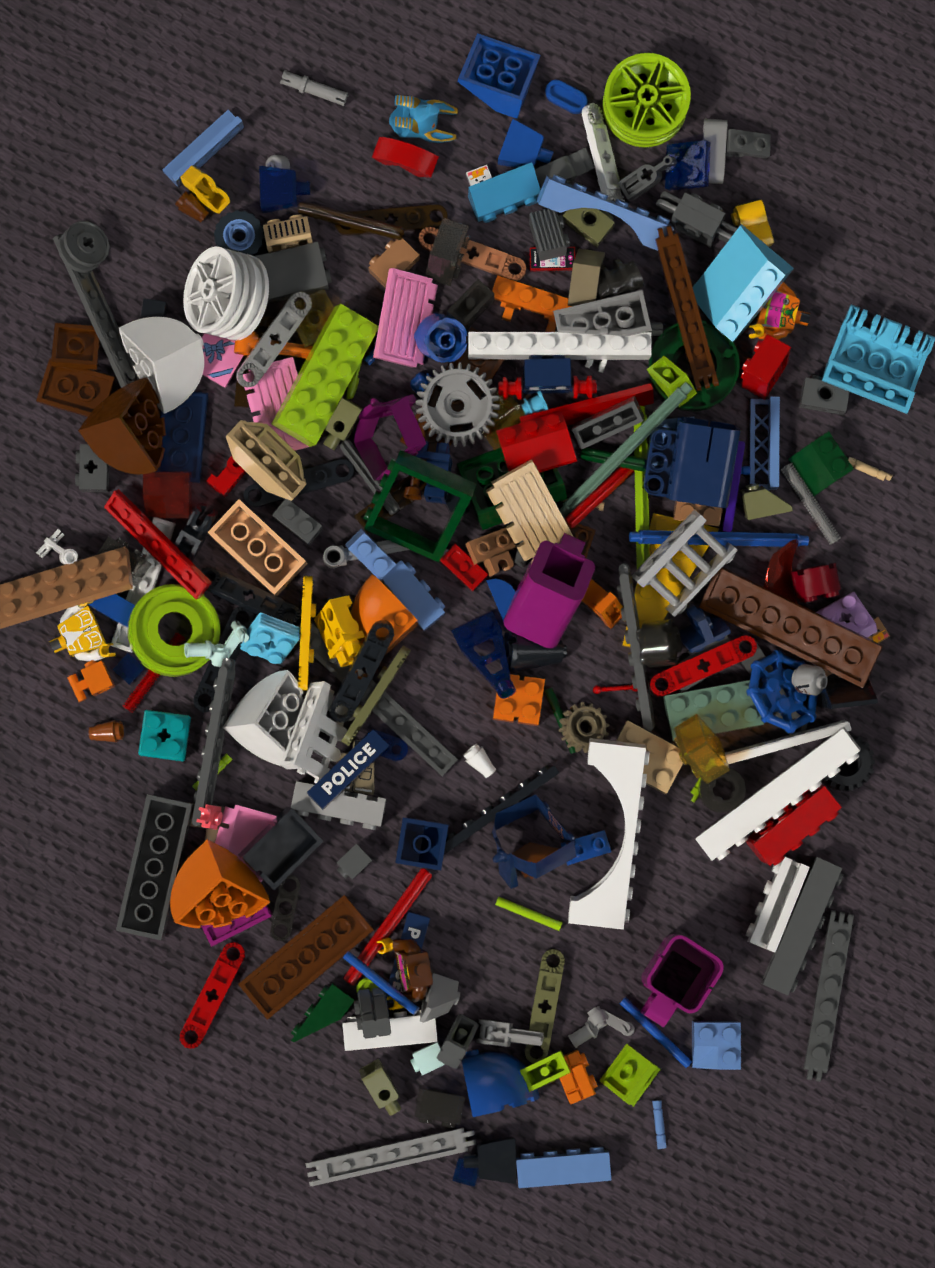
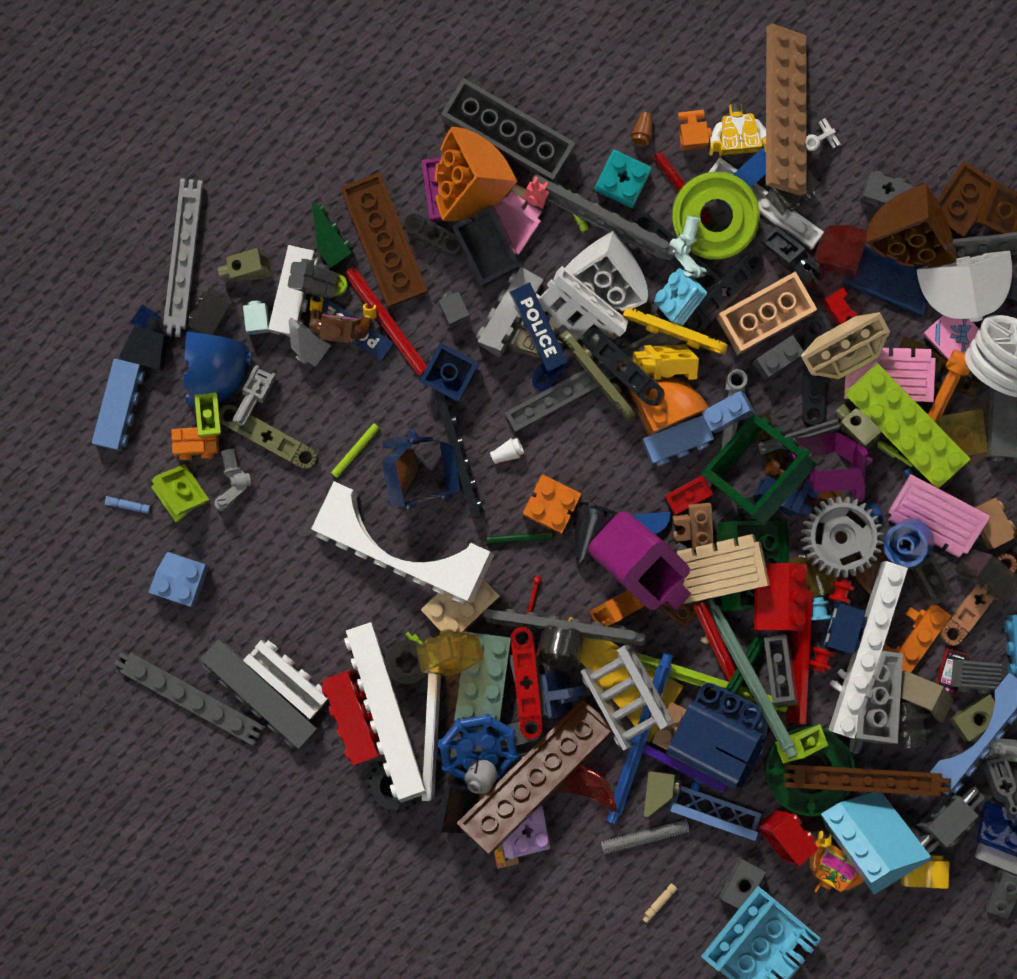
camera: 110 degrees right, 0 degrees up
(128, 669) = (693, 166): clear blue tile -> none
(157, 544) = (798, 225): red tile -> none
(204, 1010) = (366, 136): red piece -> none
(264, 352) = (965, 401): light grey piece -> none
(381, 983) = (337, 296): blue bar -> none
(457, 1041) = (261, 346): dark grey brick -> none
(477, 632) = (624, 484): clear blue plate -> none
(571, 726) = (515, 563): dark tan gear -> none
(590, 847) = (396, 524): blue plate -> none
(655, 1032) = (209, 529): blue piece -> none
(660, 1006) = (231, 541): magenta piece -> none
(816, 581) = (570, 815): dark red brick -> none
(821, 464) = (679, 859): dark green slope -> none

